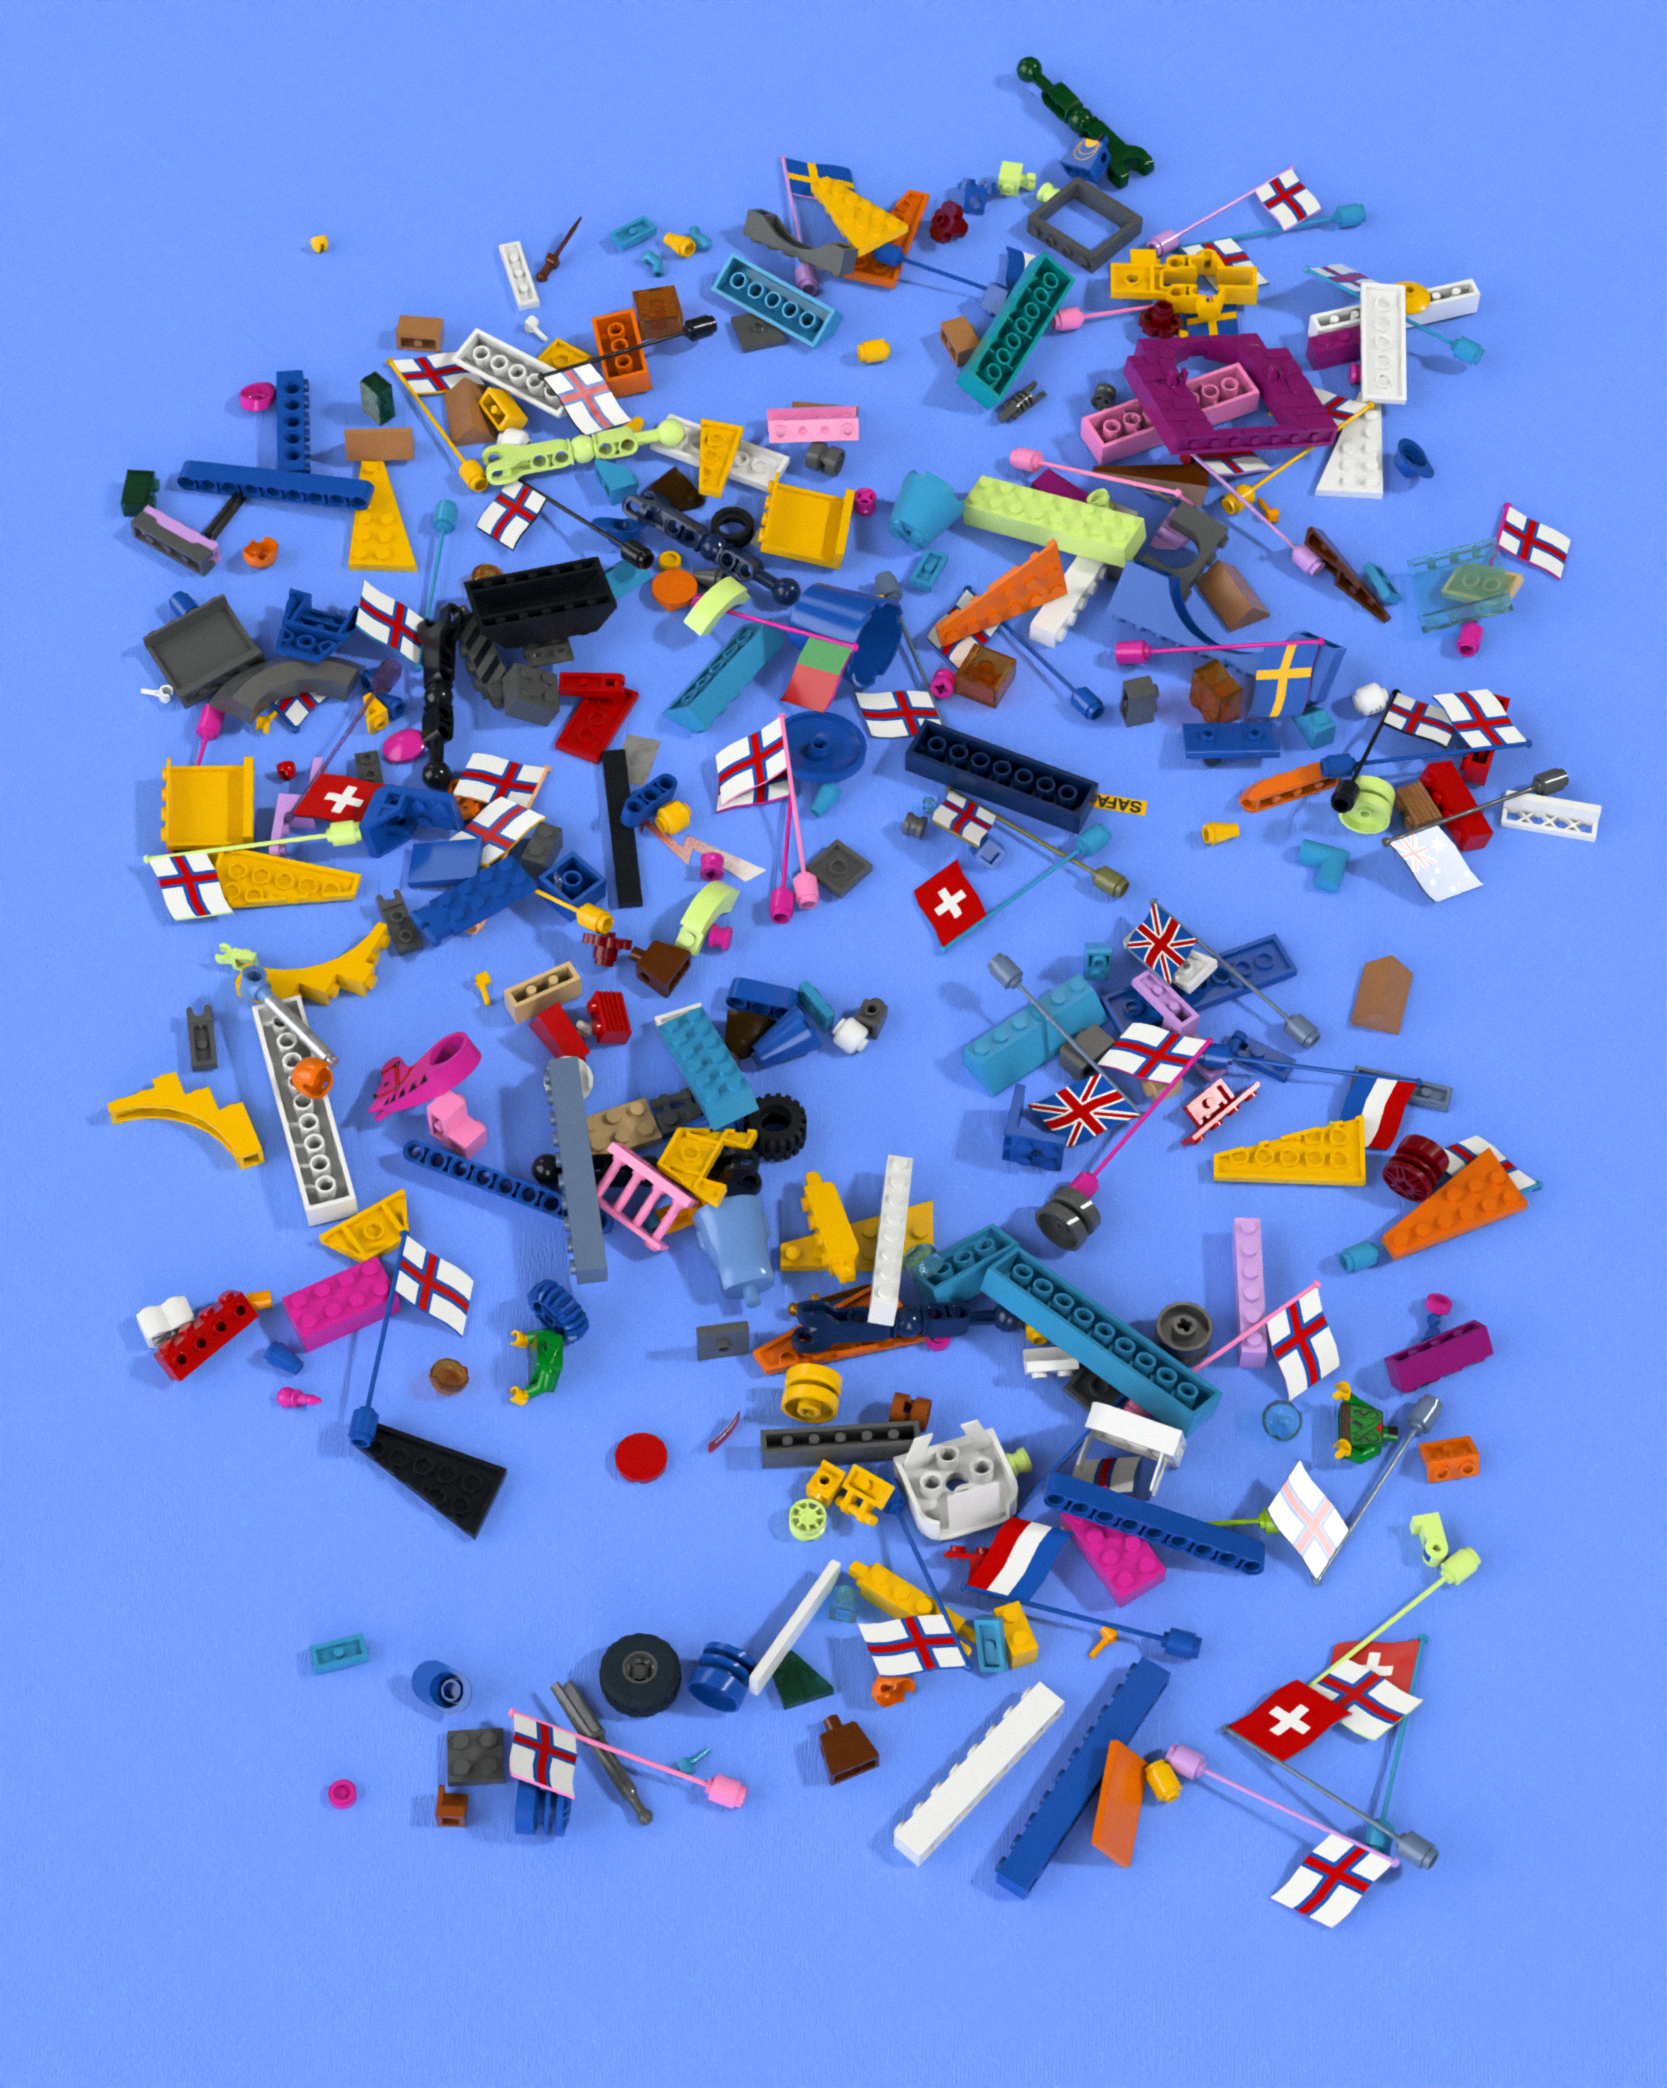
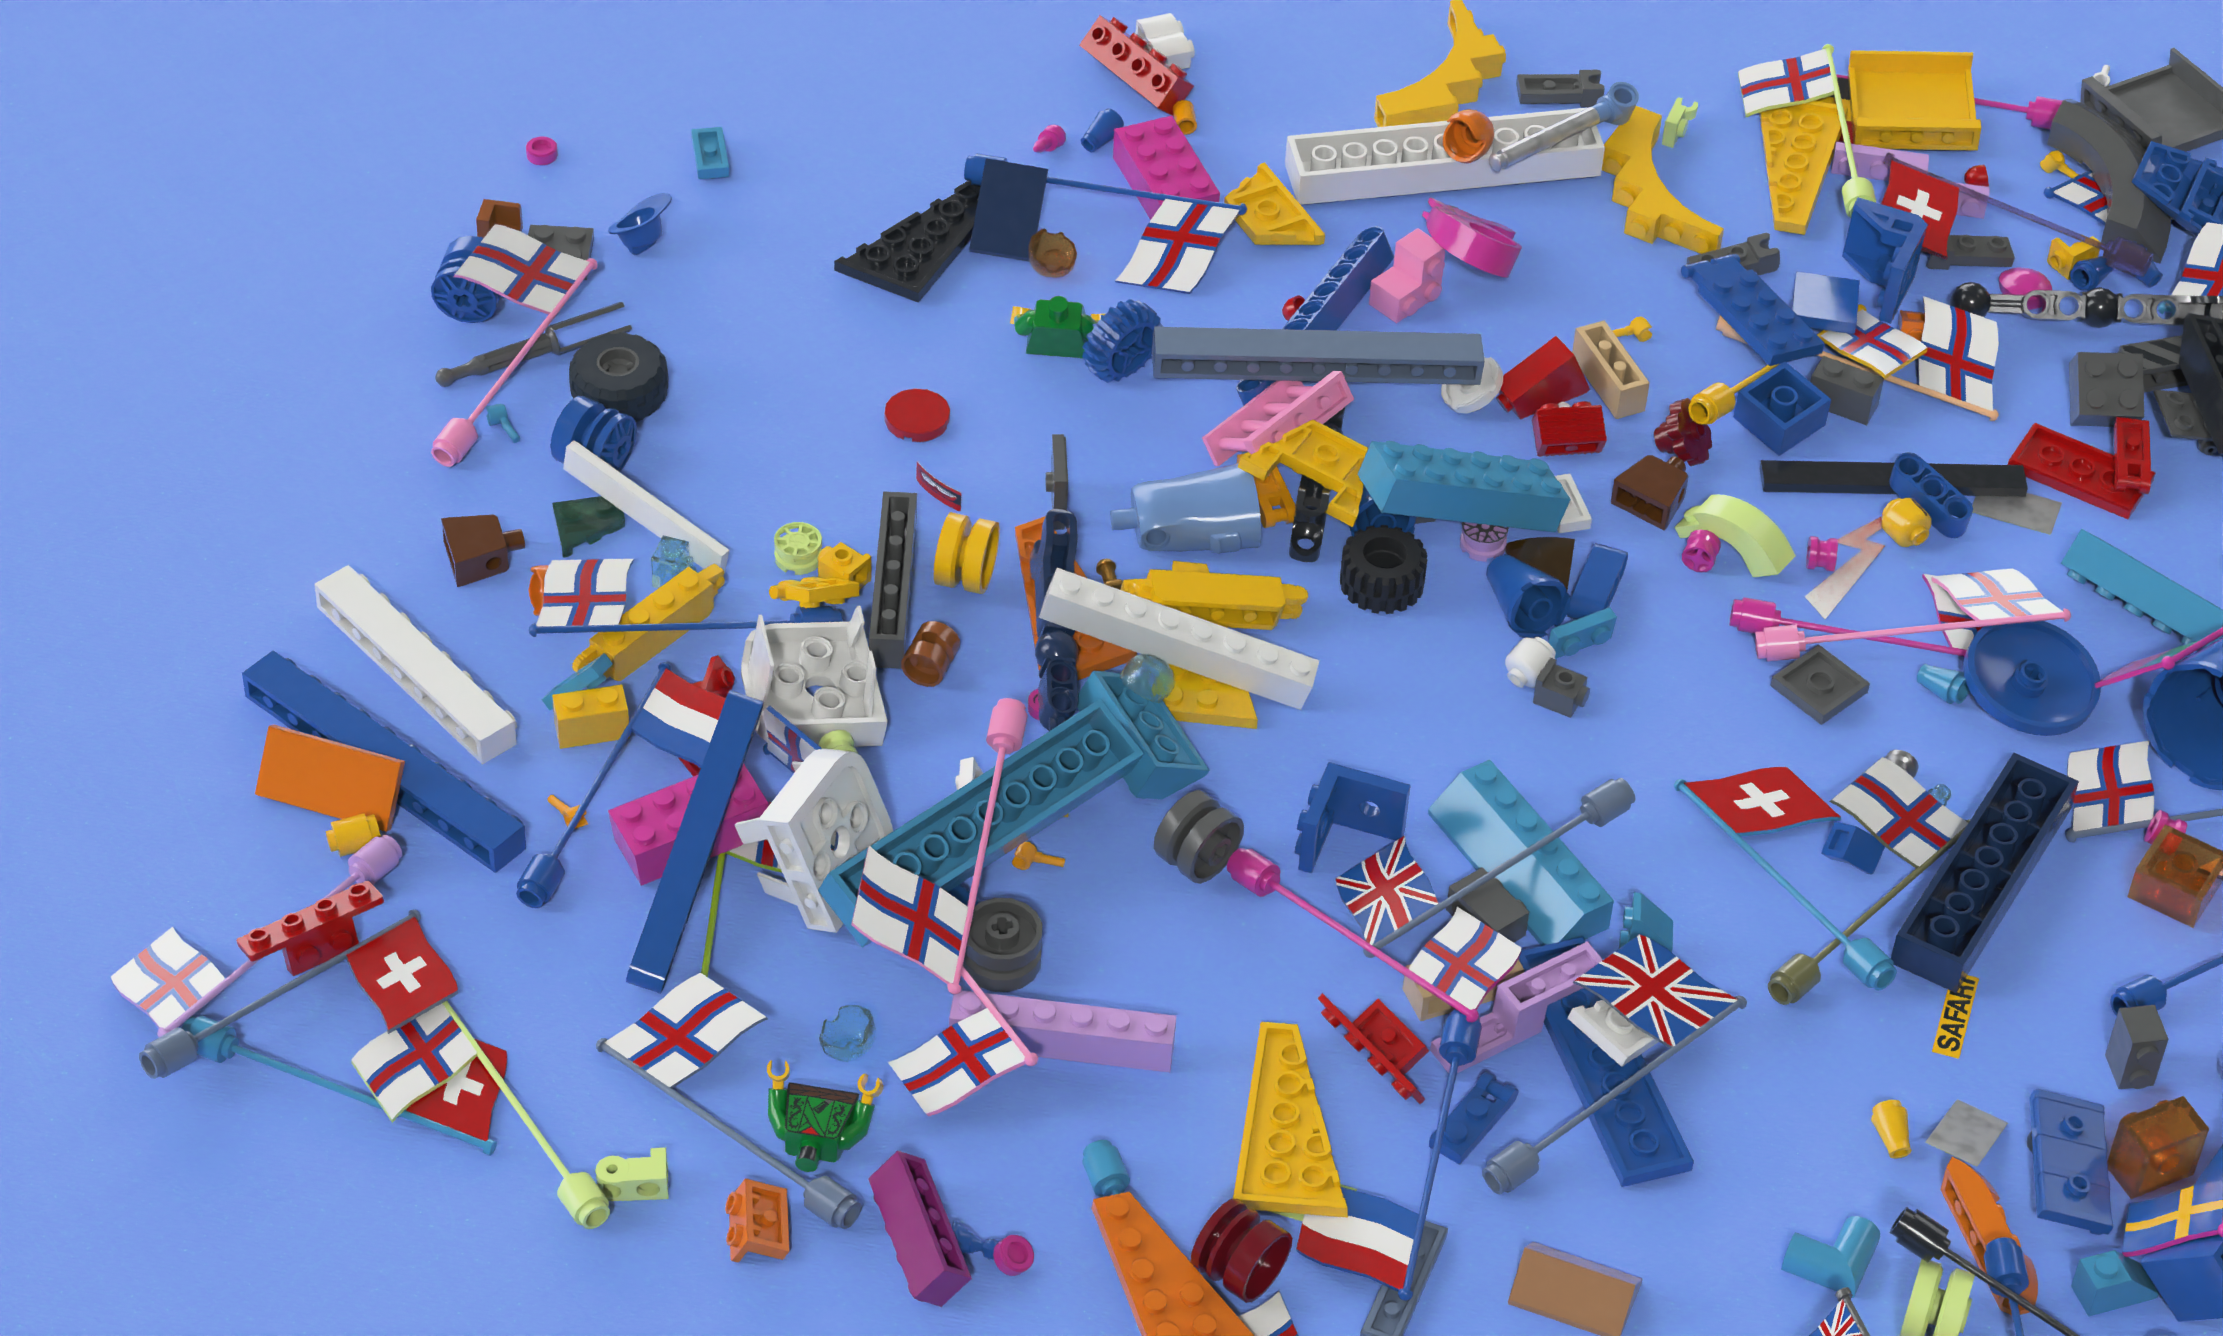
camera: 95 degrees right, 10 degrees down
(408, 1407) = (1008, 209): none -> dark blue tile
(489, 1204) = (1292, 306): none -> red hinge
(626, 1124) = (1395, 419): tan plate -> none
(1202, 1369) = (917, 915): none -> flag
(1214, 794) = (1966, 1132): none -> flat silver sticker
(1265, 1783) = (314, 932): none -> red bracket

